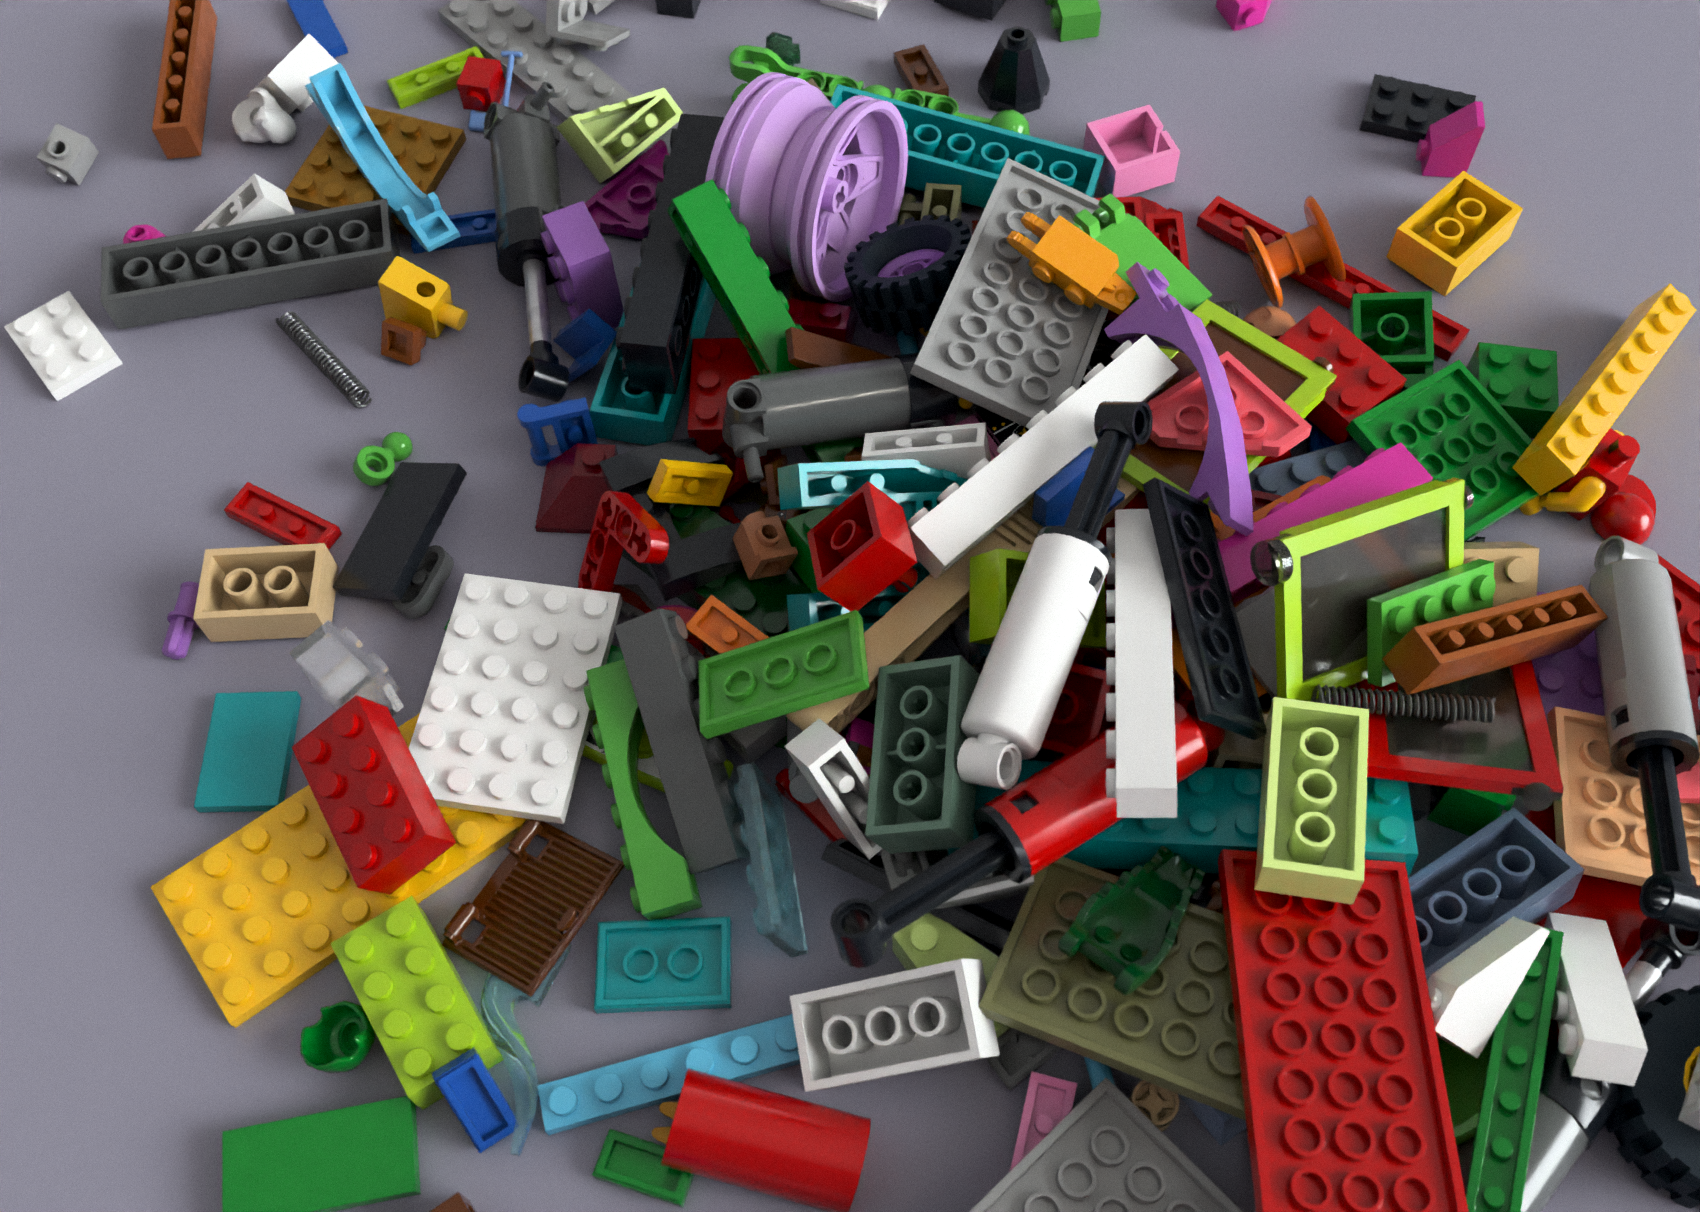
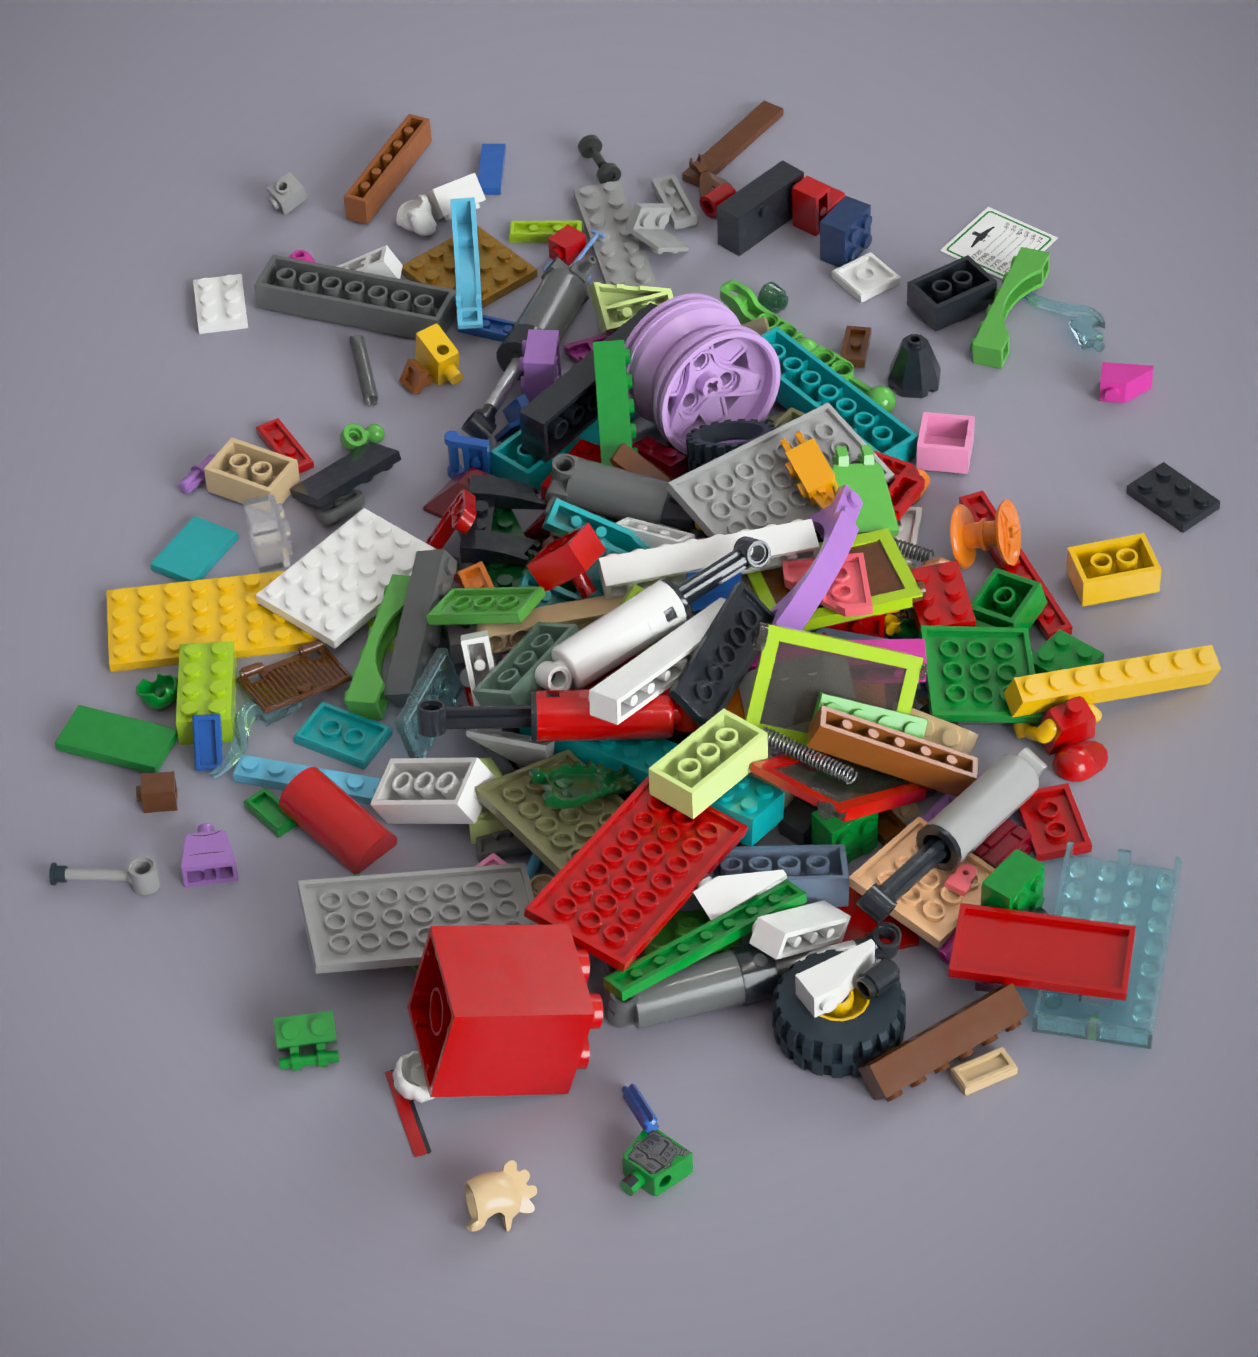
camera: 30 degrees right, 15 degrees down
(373, 796) = (243, 586): red brick -> none
(689, 483) = (515, 507): yellow plate -> none
(763, 546) = (527, 548): nougat brick -> none
(1452, 142) = (1165, 520): dark pink slope -> none

